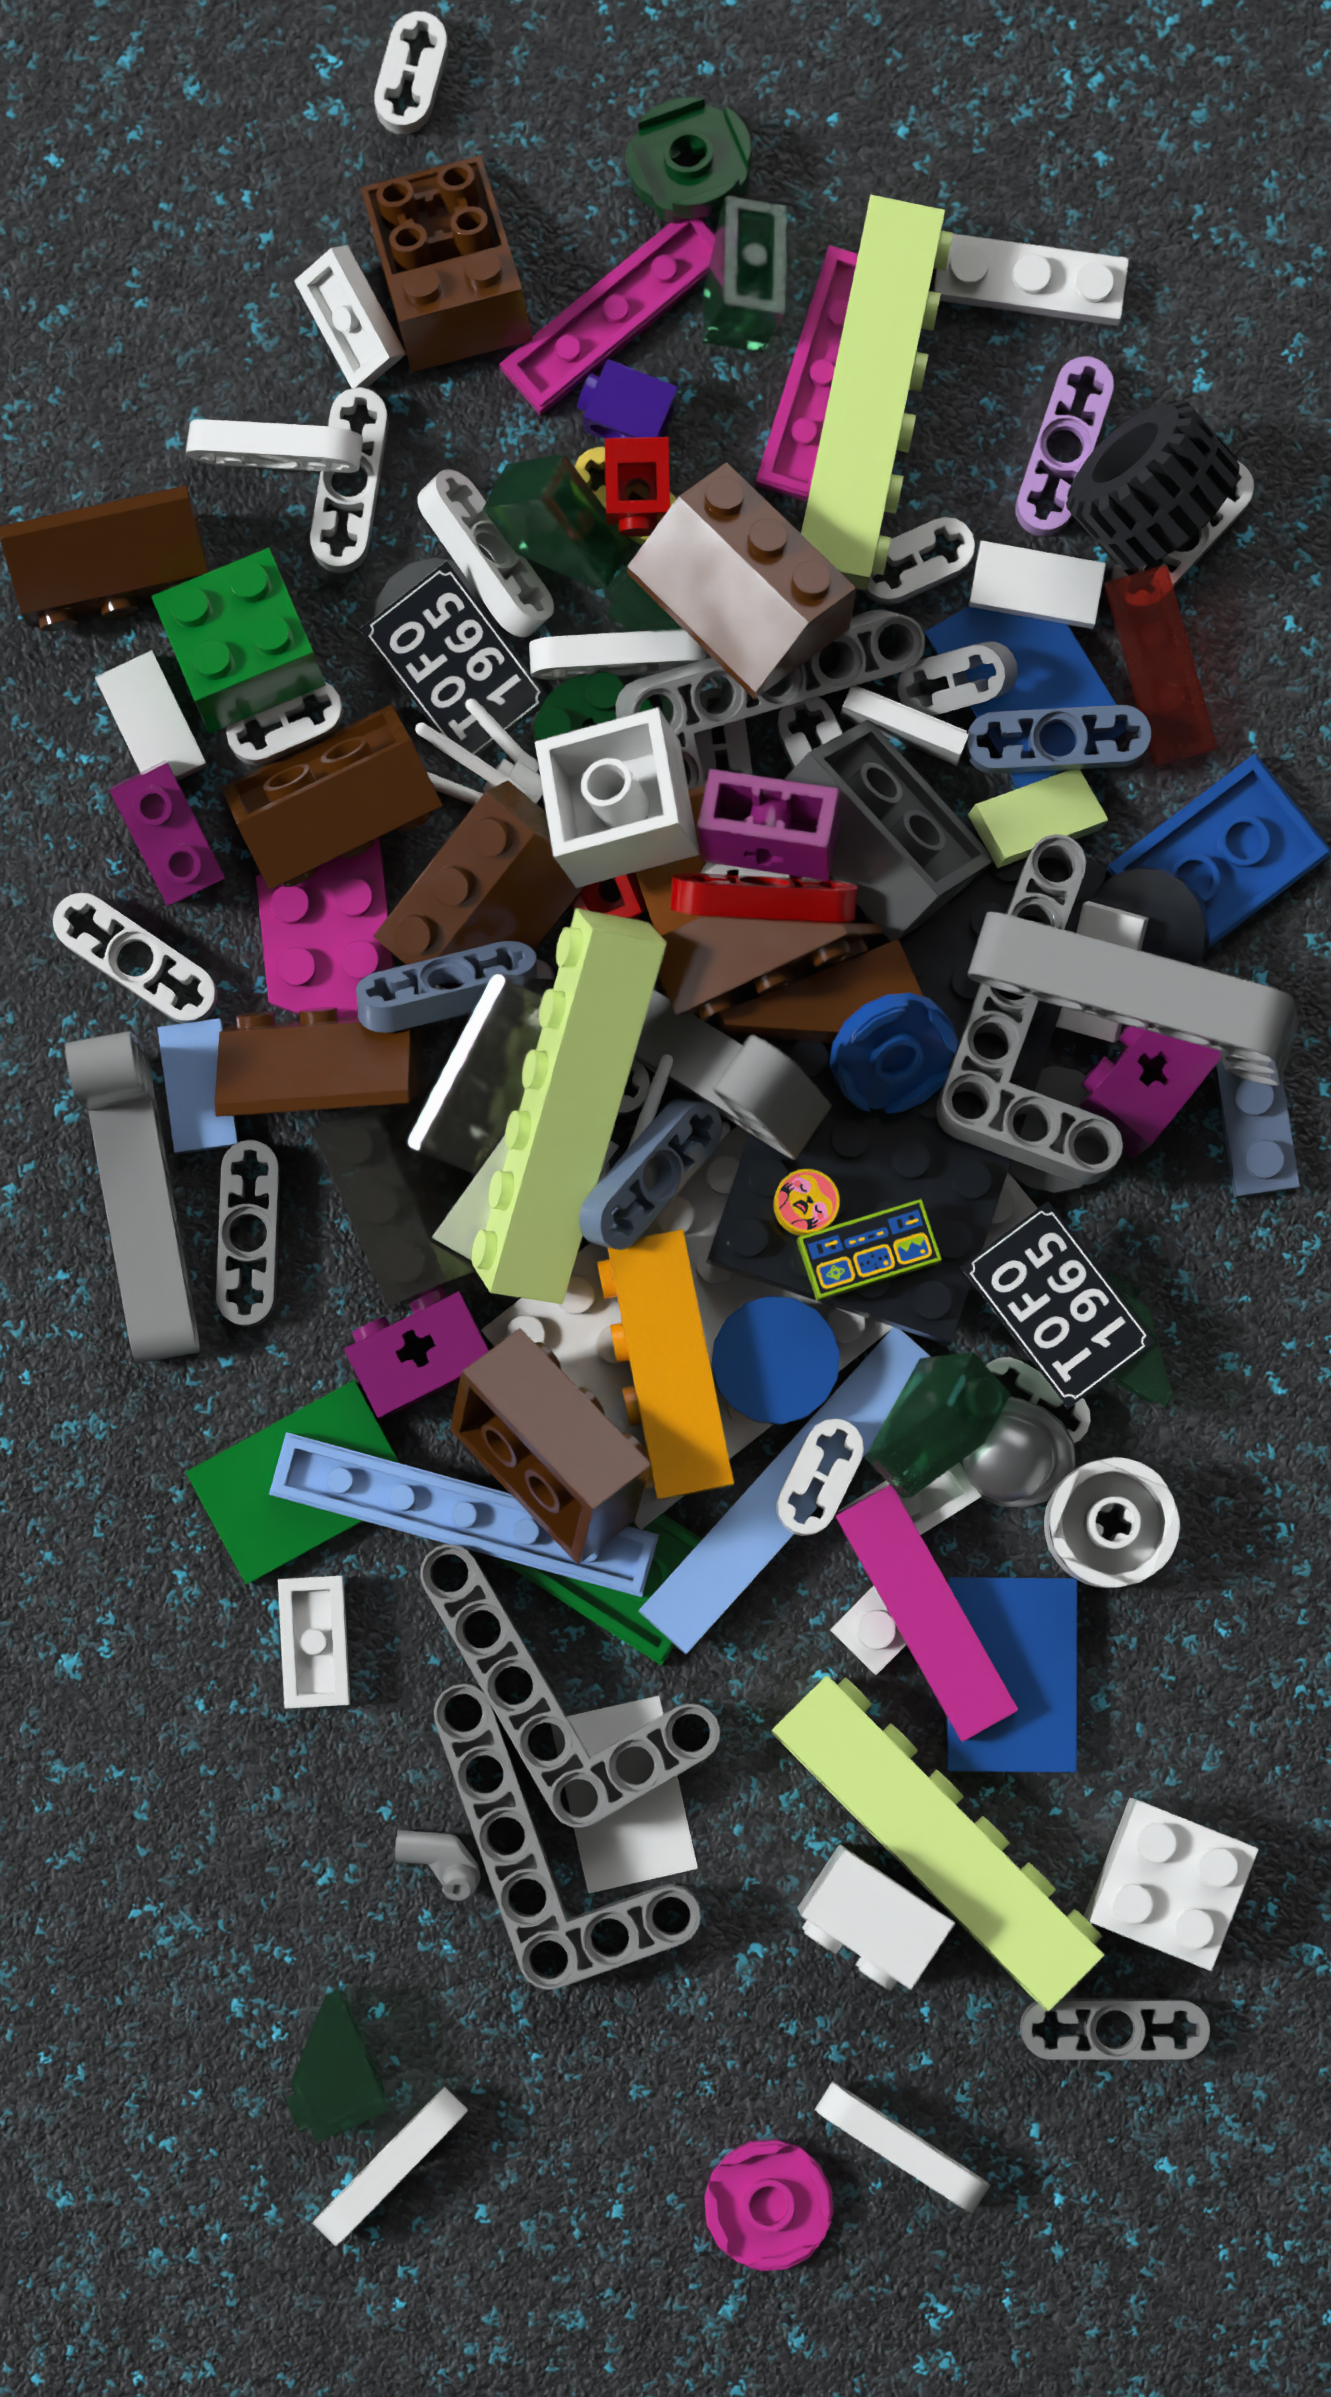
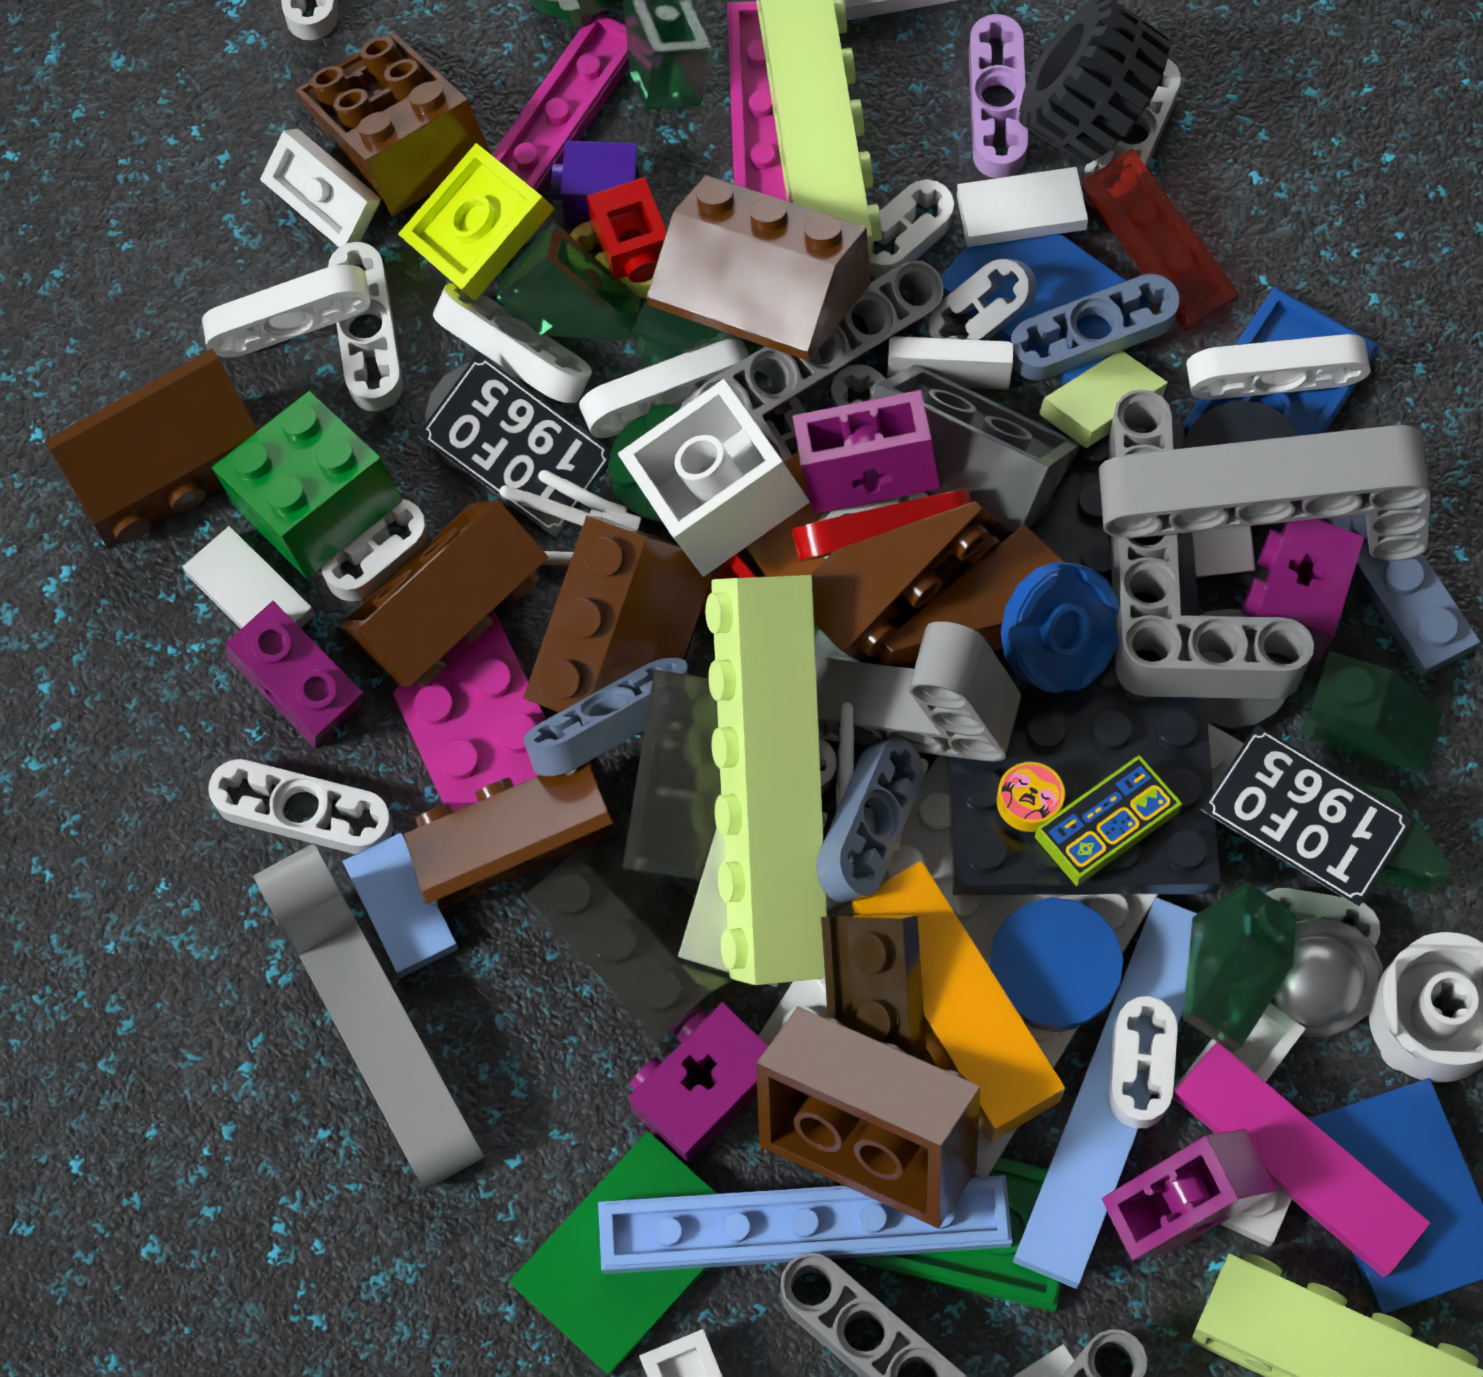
camera: 15 degrees left, 15 degrees down
(235, 1185) = (465, 987): light grey beam -> none
(490, 415) = (476, 221): none -> neon yellow plate
(600, 1325) = (875, 977): none -> dark brown plate
(811, 1612) = (1188, 1194): none -> magenta brick
(1168, 1222) = (1371, 713): none -> clear green slope
(1217, 847) = (1278, 367): none -> white beam

